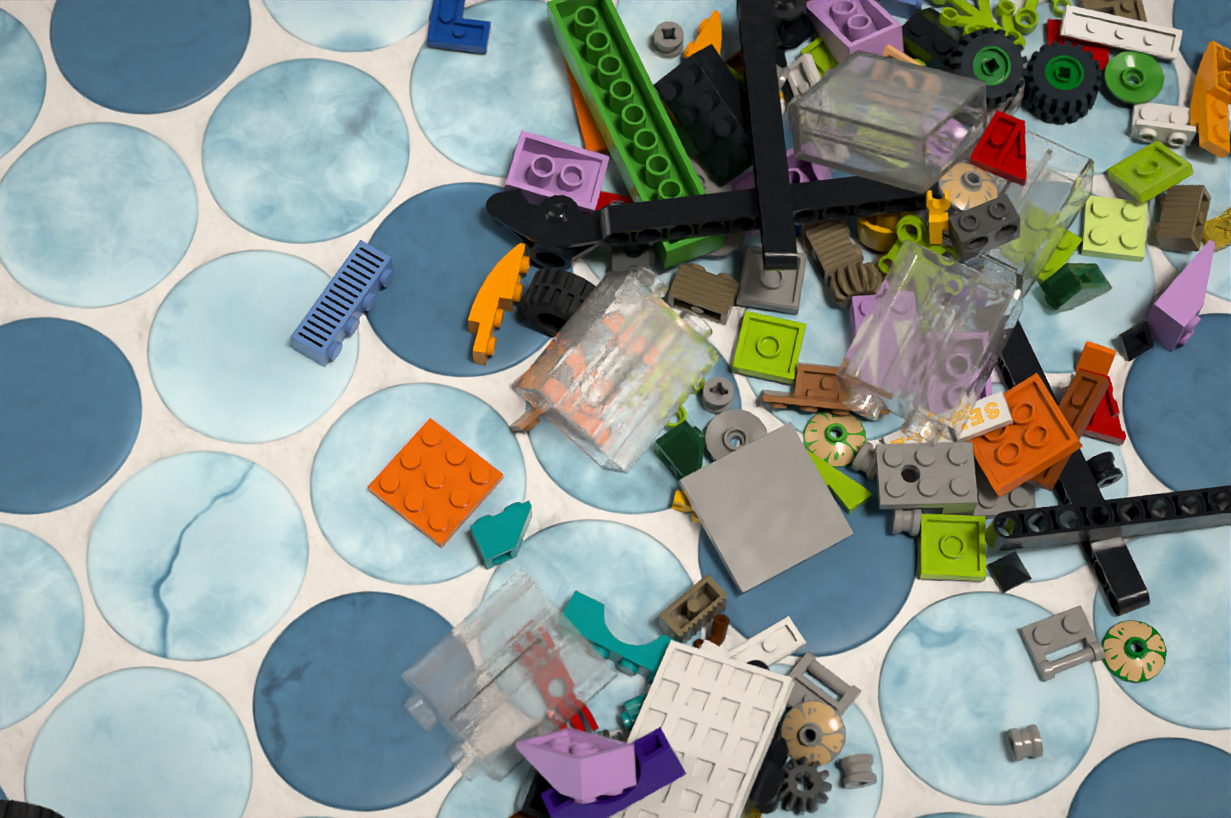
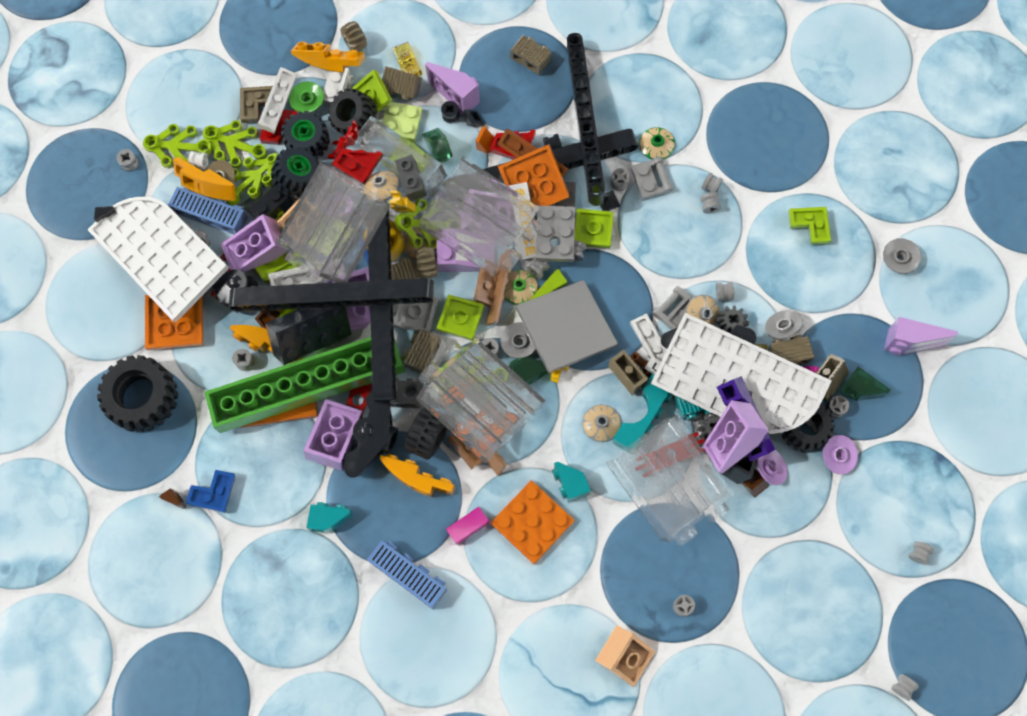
camera: 80 degrees left, 5 degrees up
(227, 630) = (625, 655): none -> light nougat slope
(306, 712) = (684, 602): none -> light grey wheel
(424, 180) = (325, 518): none -> teal slope
(424, 386) = (467, 526): none -> dark pink slope
(614, 594) = (597, 431): none -> tan dish
(1053, 135) = (348, 139): none -> red piece
(1054, 581) = (620, 175): none -> light grey wheel
(1062, 744) = (712, 183): none -> light grey wheel
(1115, 142) = (343, 105): none -> black tyre
(1140, 309) = (450, 116): none -> black wheel

